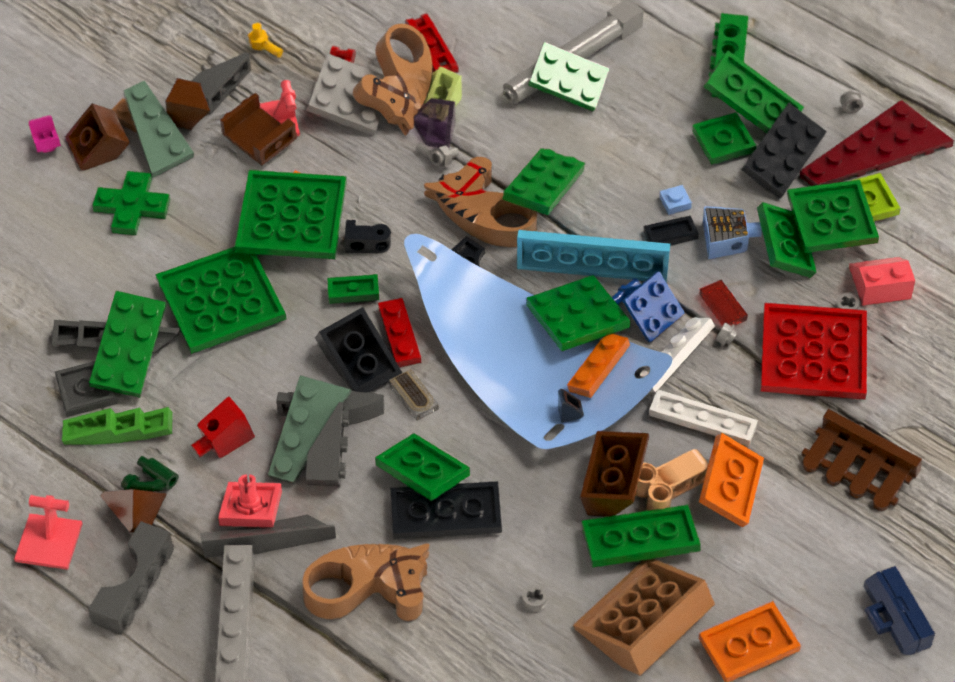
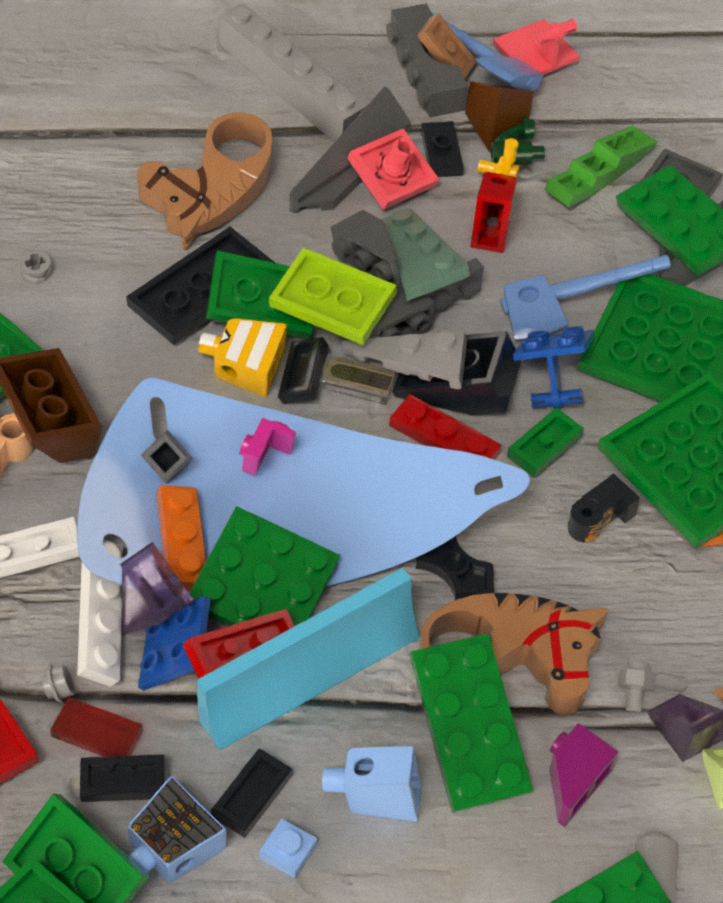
camera: 135 degrees right, 0 degrees up
(94, 519) = (507, 69): none -> medium blue piece
(115, 567) = (445, 44): none -> medium nougat plate
(181, 460) = (506, 162): none -> yellow piece
(196, 510) = (442, 148): none -> black plate
(265, 369) = (535, 304): none -> medium blue piece
(297, 319) = (540, 345): none -> blue plate
(371, 360) = (417, 354): none -> light grey wing
(389, 423) = (333, 296): none -> lime plate
(440, 415) = (303, 370): none -> black tile
(465, 441) = (247, 353): none -> yellow torso
(510, 377) = (267, 435): none -> dark pink bracket
(514, 138) = (578, 769): none -> magenta slope
(612, 184) = (378, 782): none -> light blue torso
(625, 268) = (223, 645): none -> red plate
(645, 325) = (149, 590): none -> clear purple slope
(730, 271) = (121, 777): none -> black plate

